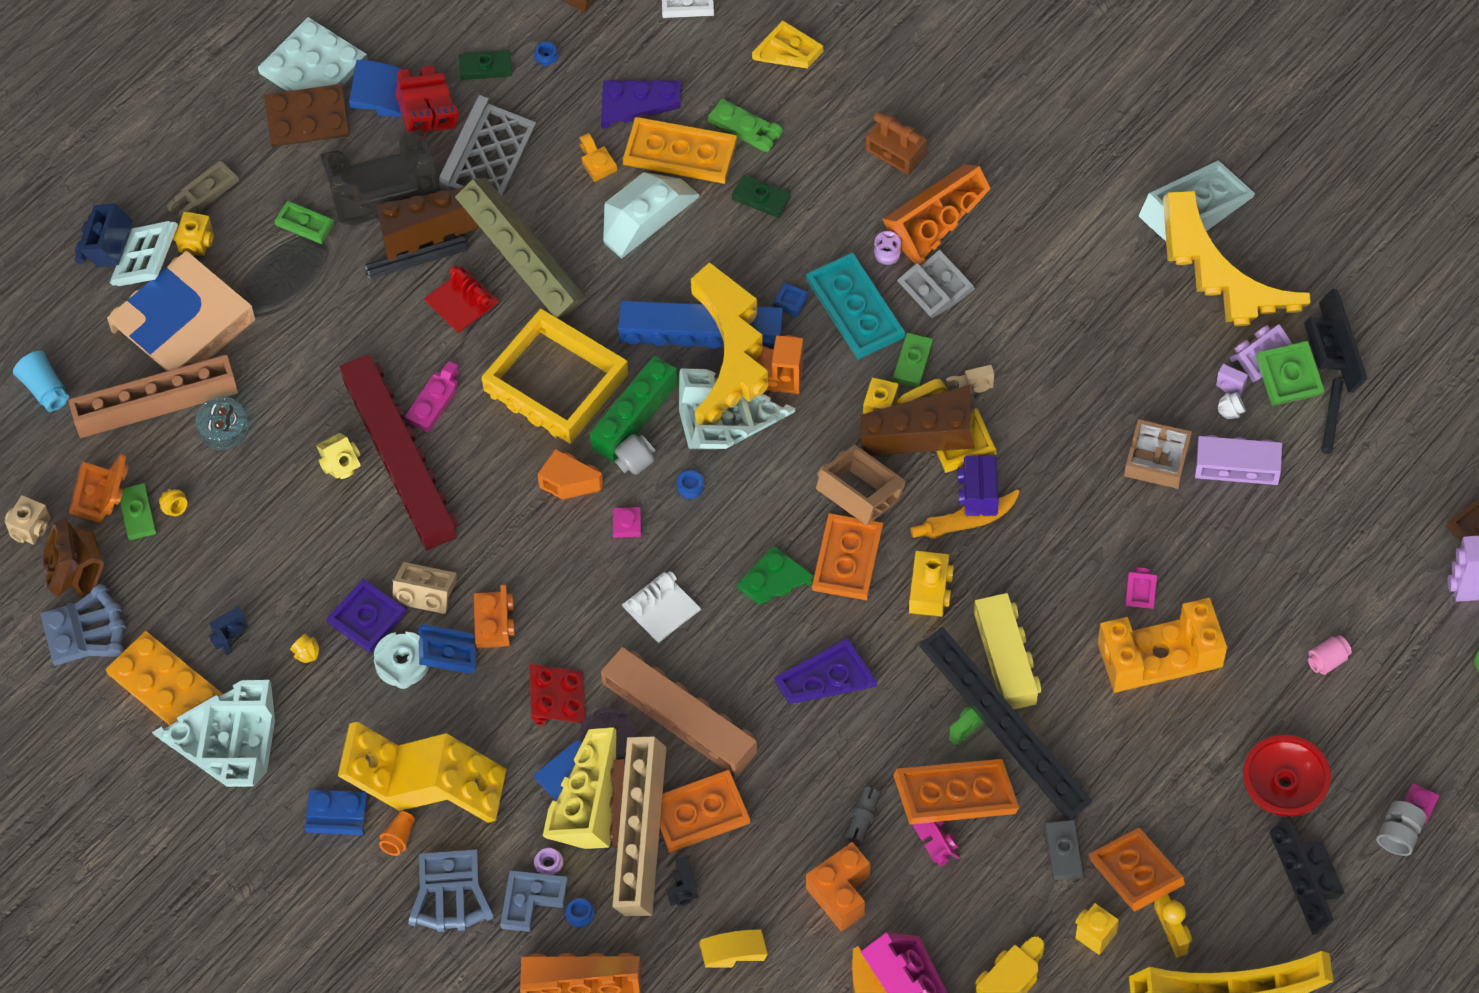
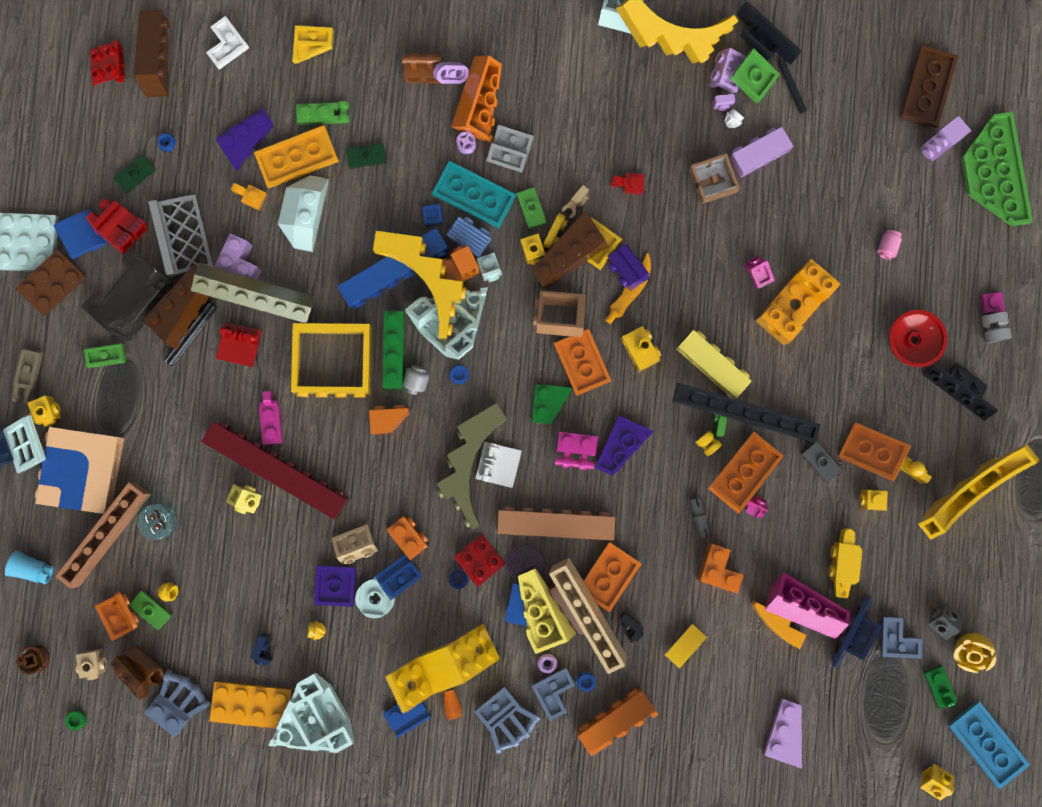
camera: 35 degrees left, 25 degrees up
(515, 694) = (454, 584): none -> clear blue plate
(533, 205) = (234, 258): none -> lavender brick
(627, 522) = (440, 424): dark pink plate -> none
(657, 552) = (458, 484): none -> olive arch
(769, 637) = (576, 444): none -> dark pink brick
(814, 392) = (489, 267): none -> light aqua bracket
(819, 350) = (465, 234): none -> medium blue brick
(921, 160) = (446, 72): none -> lavender plate
(935, 737) = (707, 438): none -> yellow wheel
(1052, 404) = (631, 183): none -> red plate

